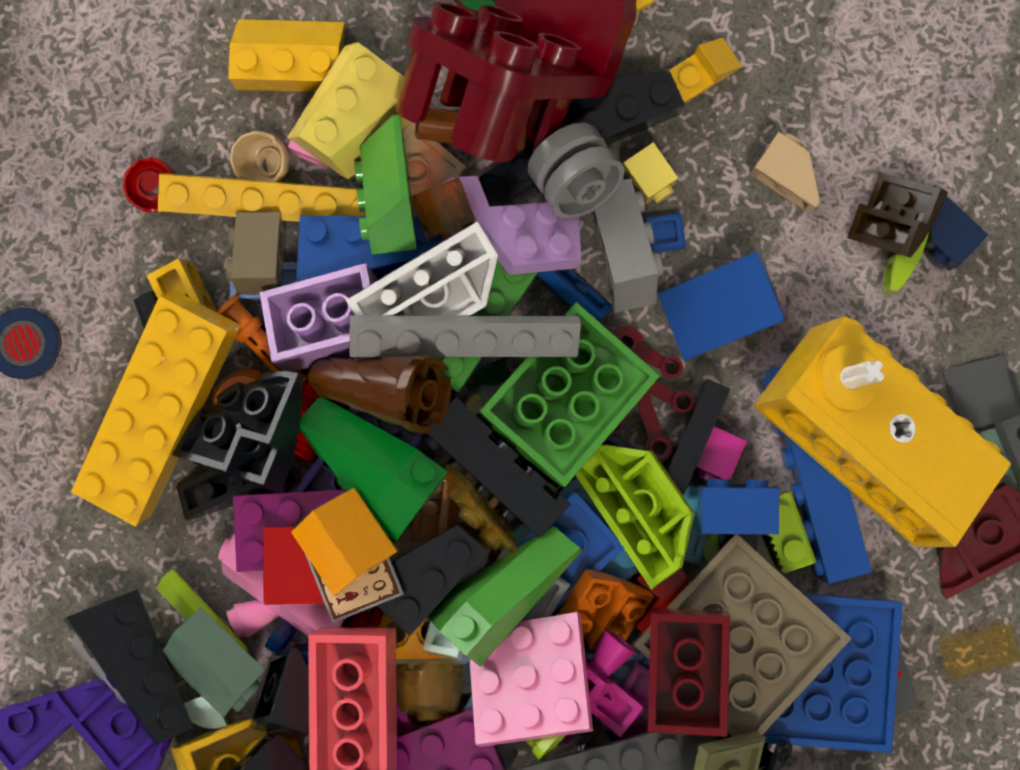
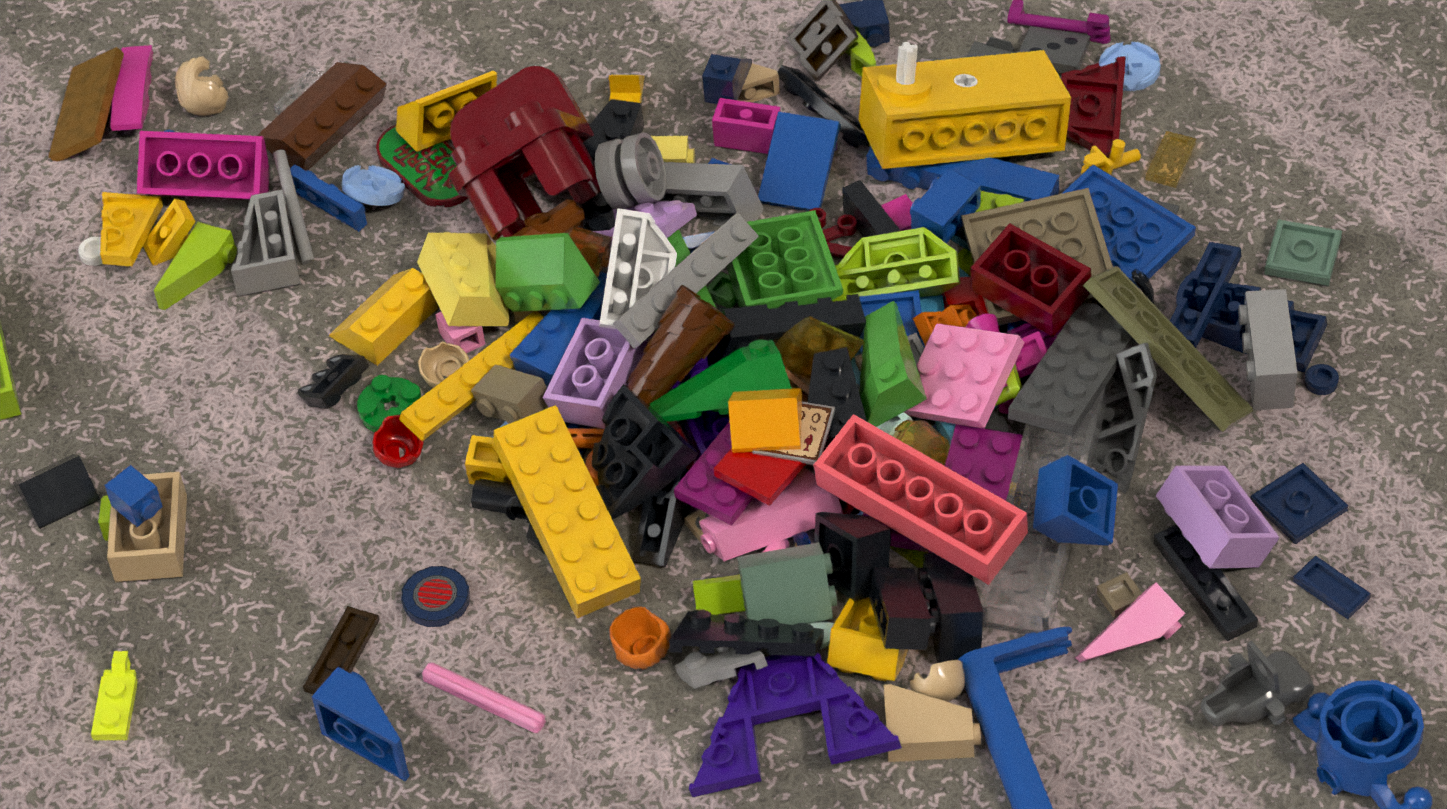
camera: 50 degrees left, 35 degrees down
(83, 567) = (639, 638): none -> orange hair
(178, 128) = (382, 391): none -> green plate
(184, 68) = (333, 382): none -> black plate
(733, 221) = (744, 125): none -> dark pink brick
(772, 163) = (724, 77): none -> dark blue slope
(817, 270) = (820, 102): none -> black plate
(918, 596) = (1115, 160): none -> yellow arm

